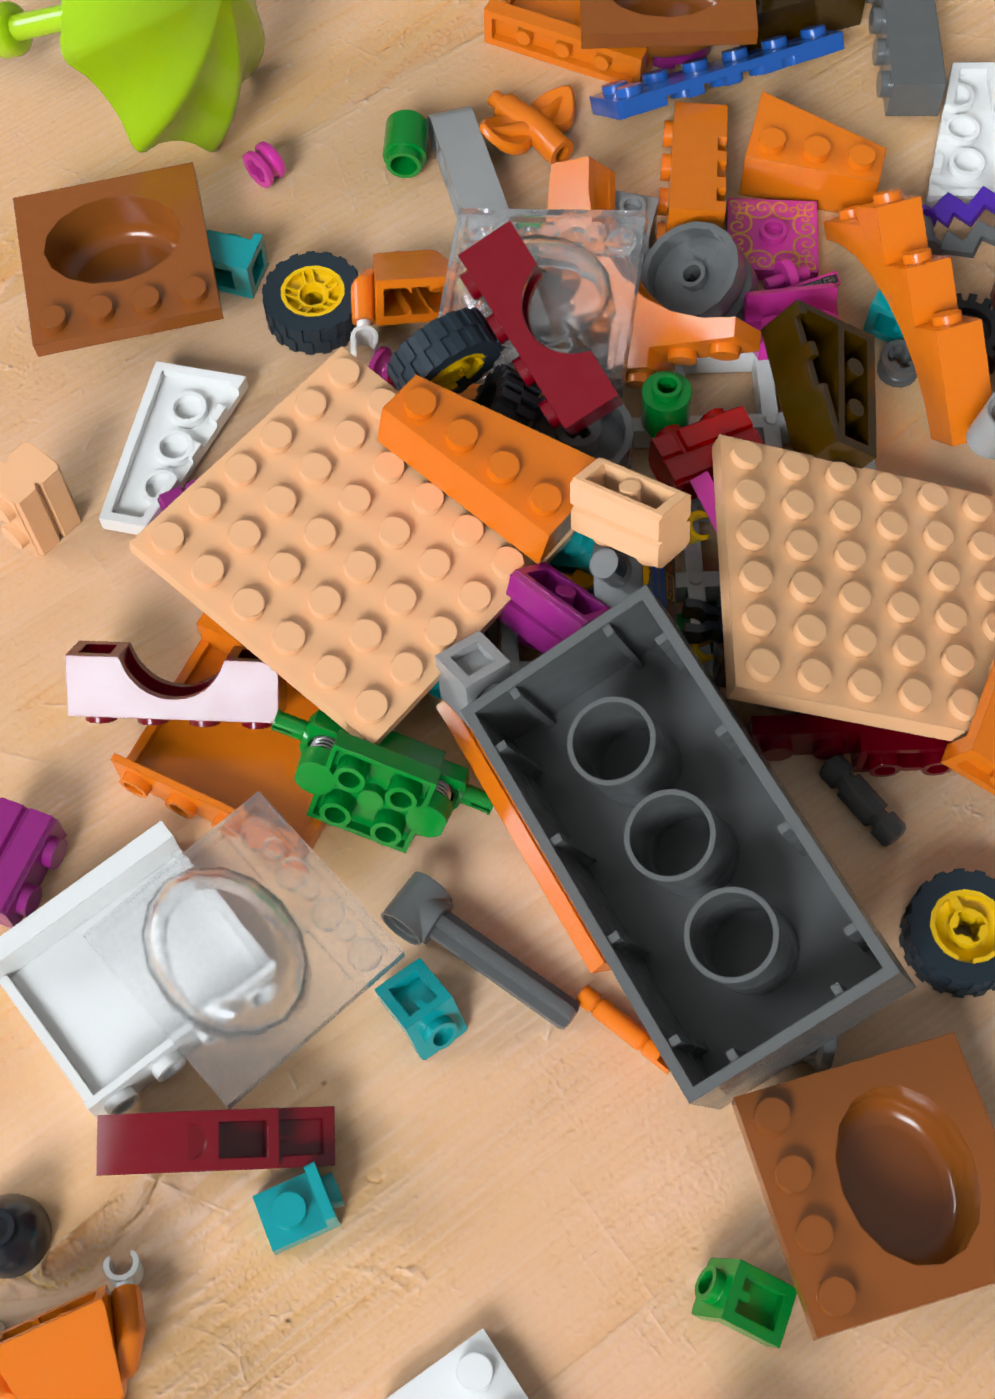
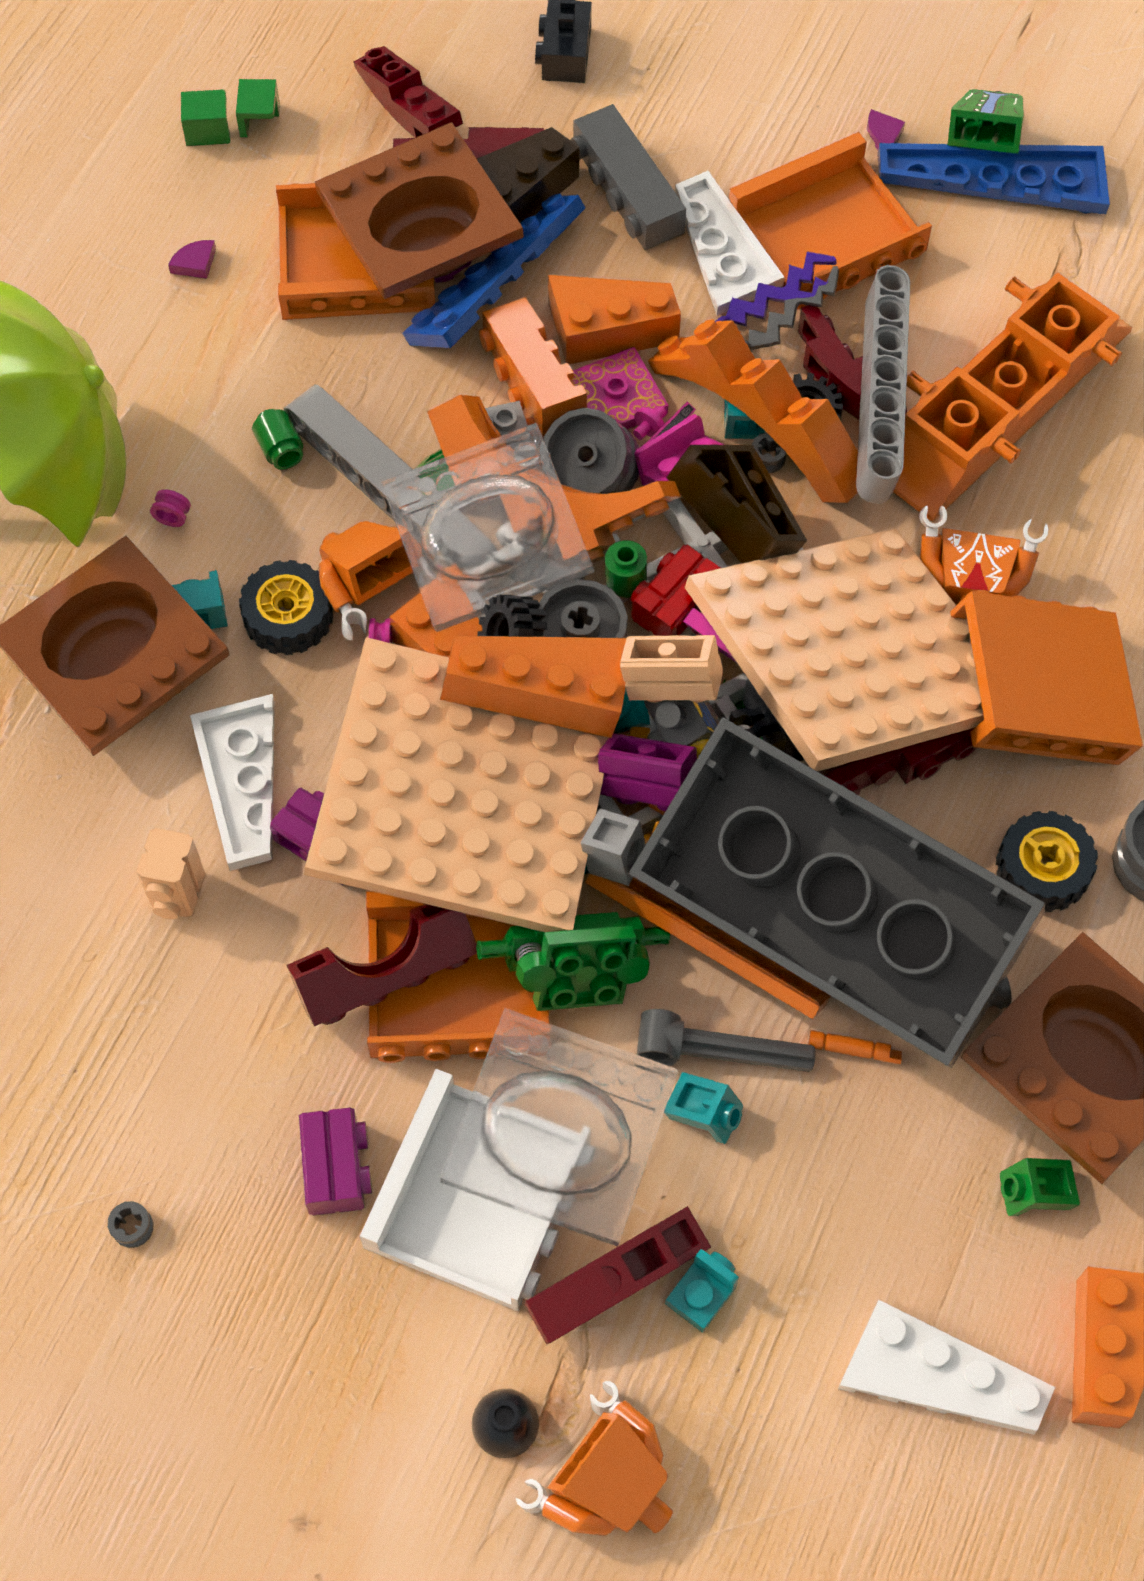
camera: 30 degrees left, 0 degrees up
(447, 351) = (455, 610): black wheel -> none
(507, 277) = (474, 527): dark red arch -> none
(541, 125) = (371, 377): orange plant -> none
(862, 800) = (925, 801): dark grey axle -> none

